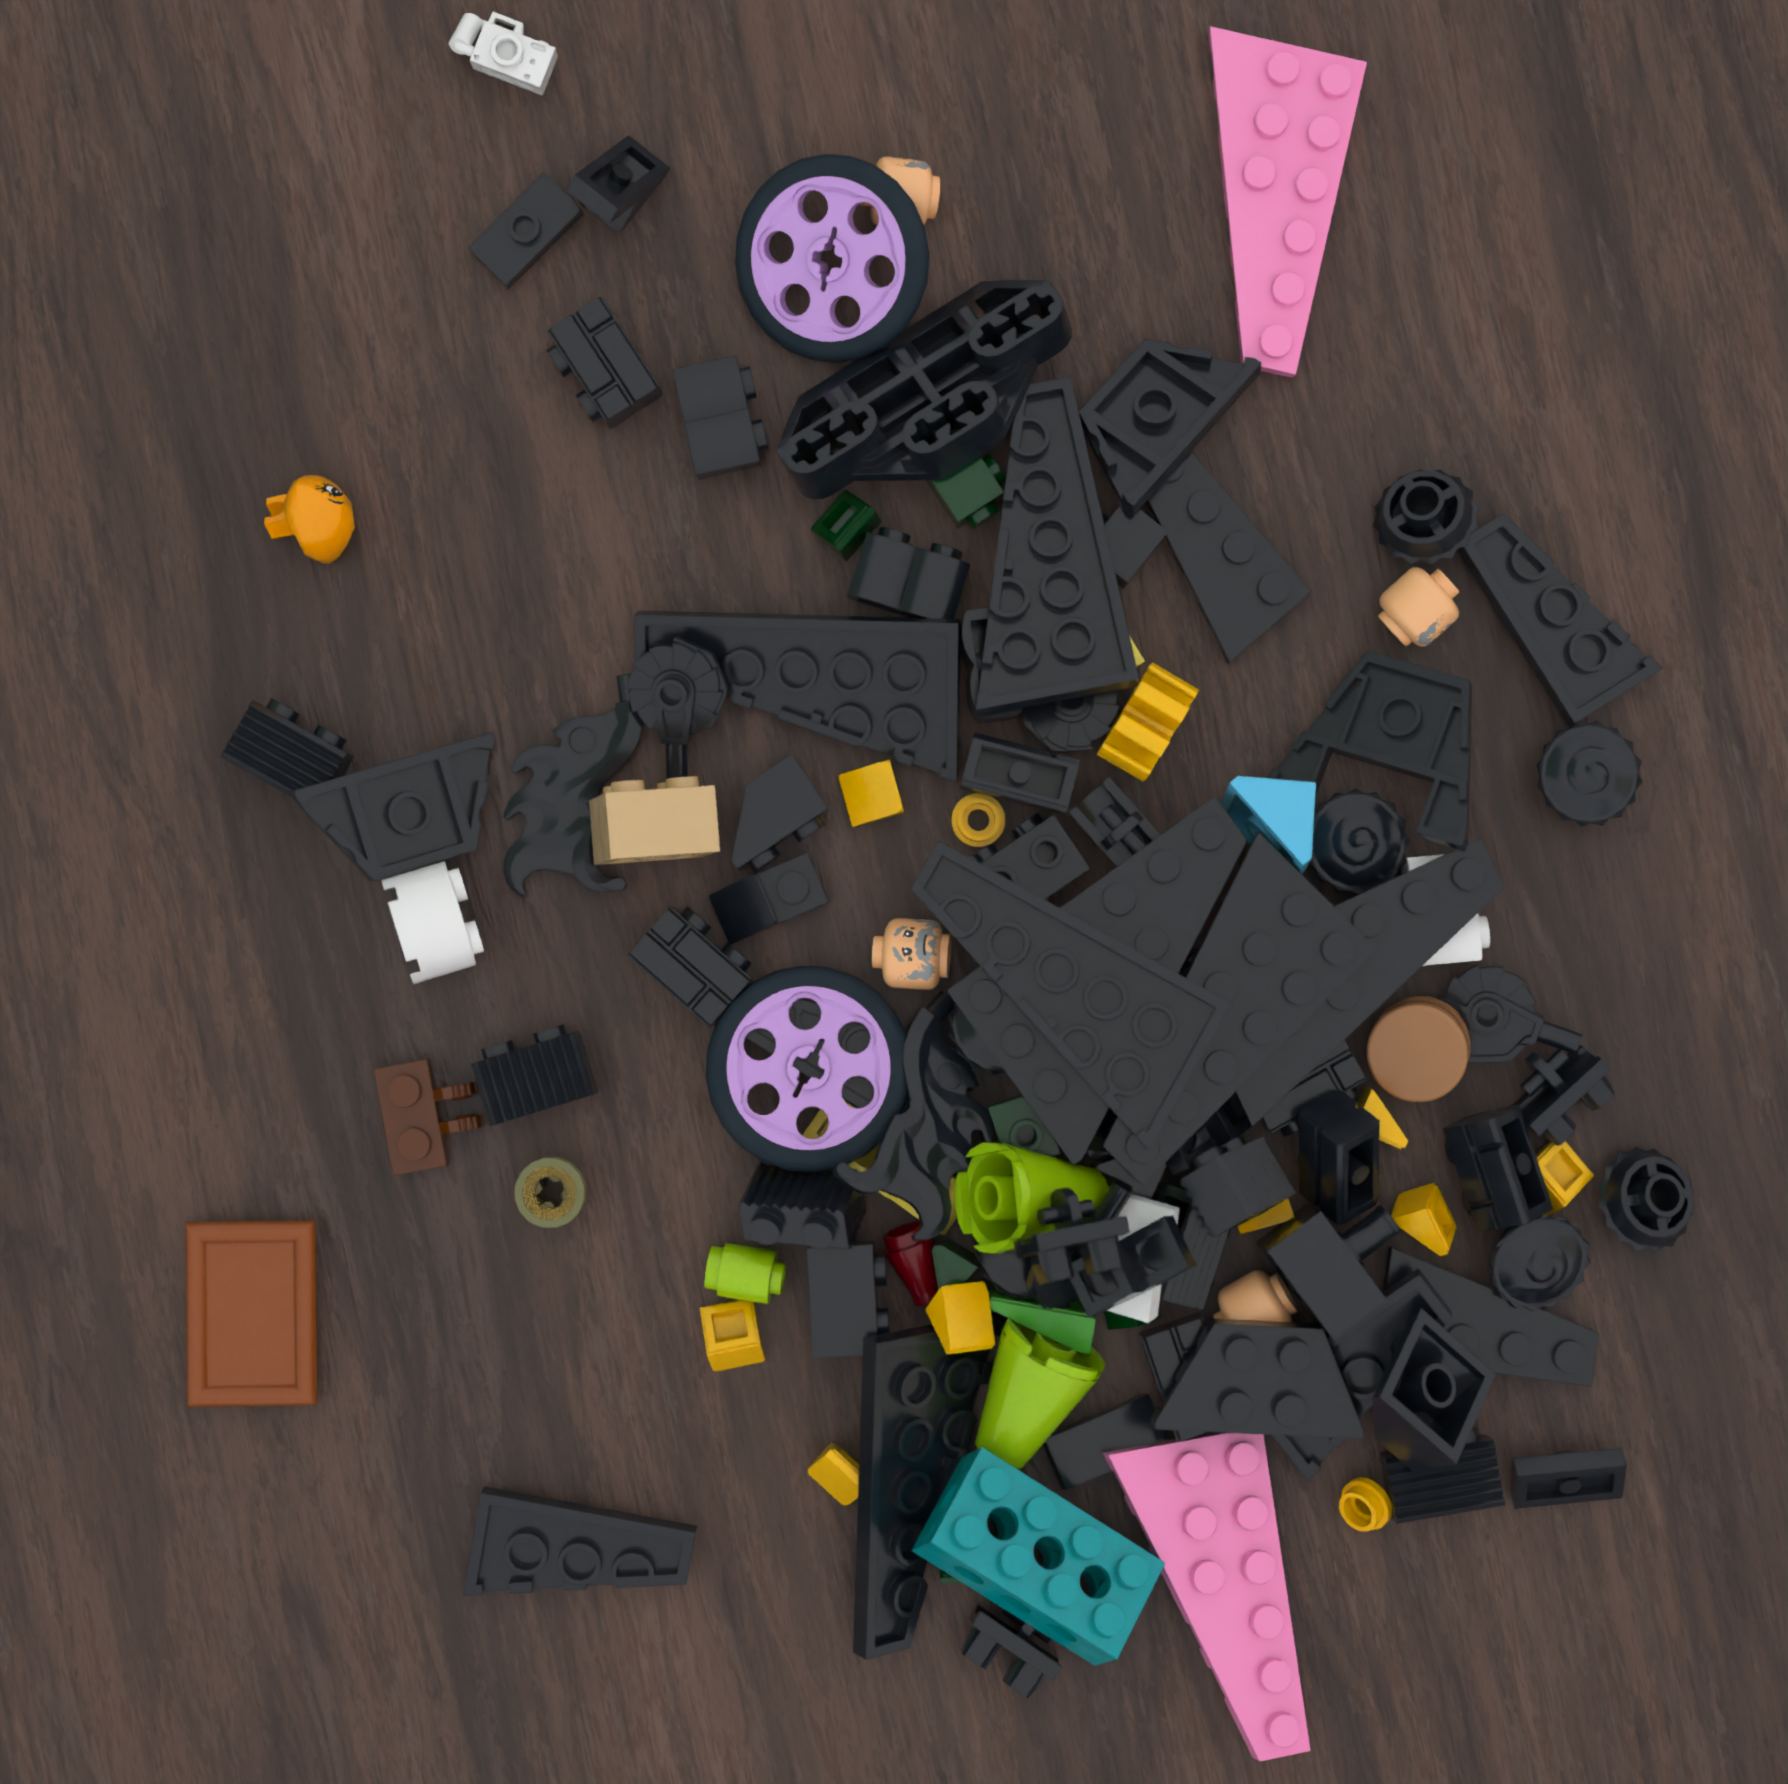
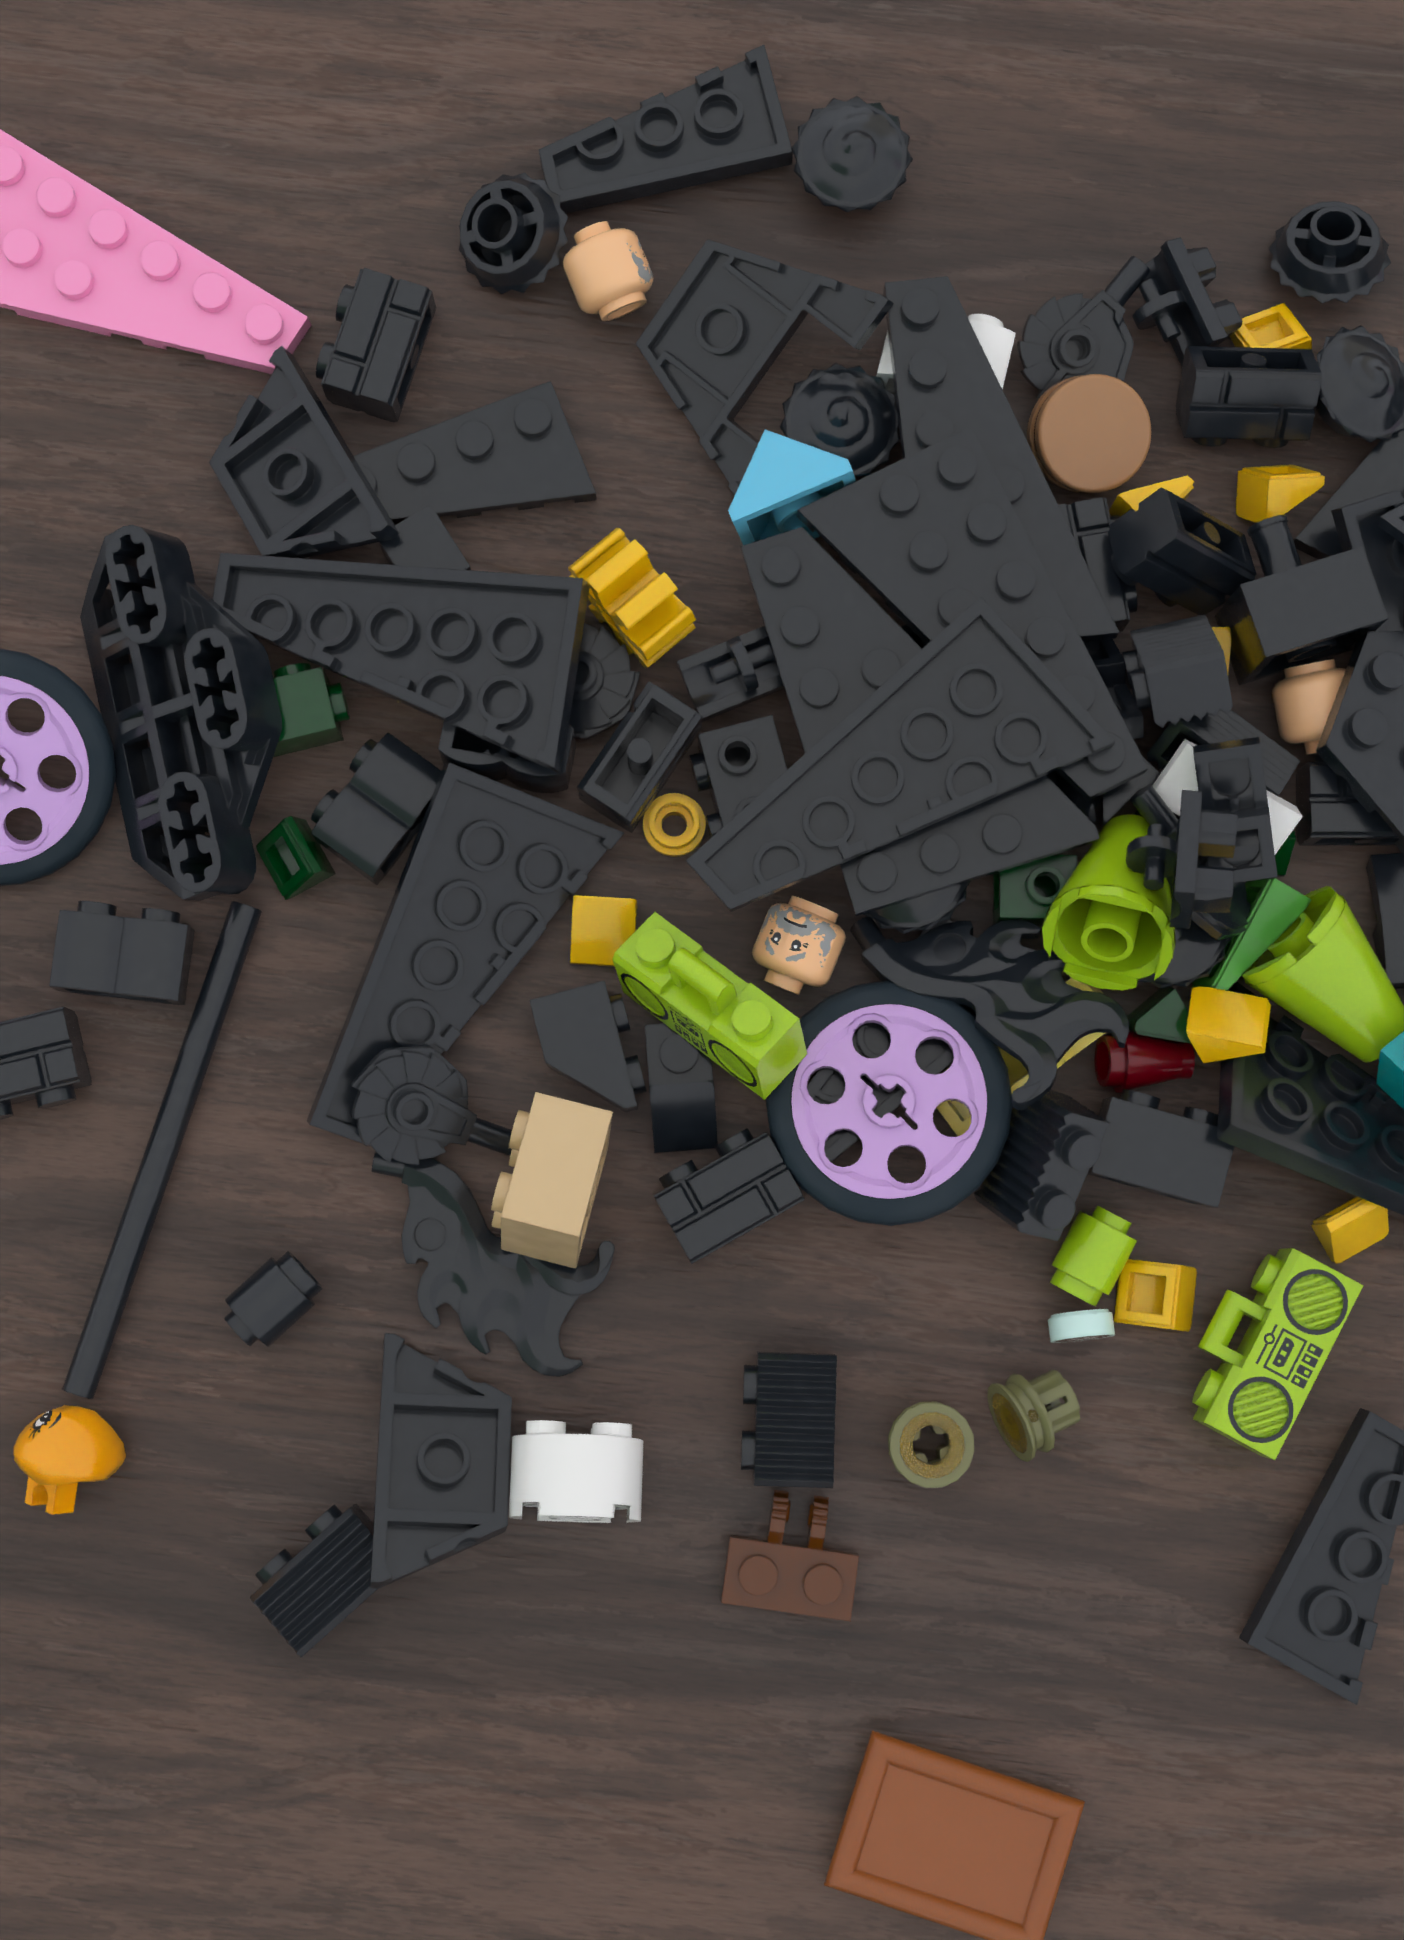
camera: 80 degrees left, 5 degrees down
(487, 634) = (271, 1300): none -> black brick
(578, 504) = (161, 1151): none -> black piece
(604, 1265) = (1022, 1414): none -> olive piece
(685, 1281) = (1081, 1325): none -> light aqua tile
(716, 1448) = (1281, 1354): none -> lime piece
(835, 899) = (710, 1005): none -> lime piece
(1291, 439) = (376, 344): none -> black brick

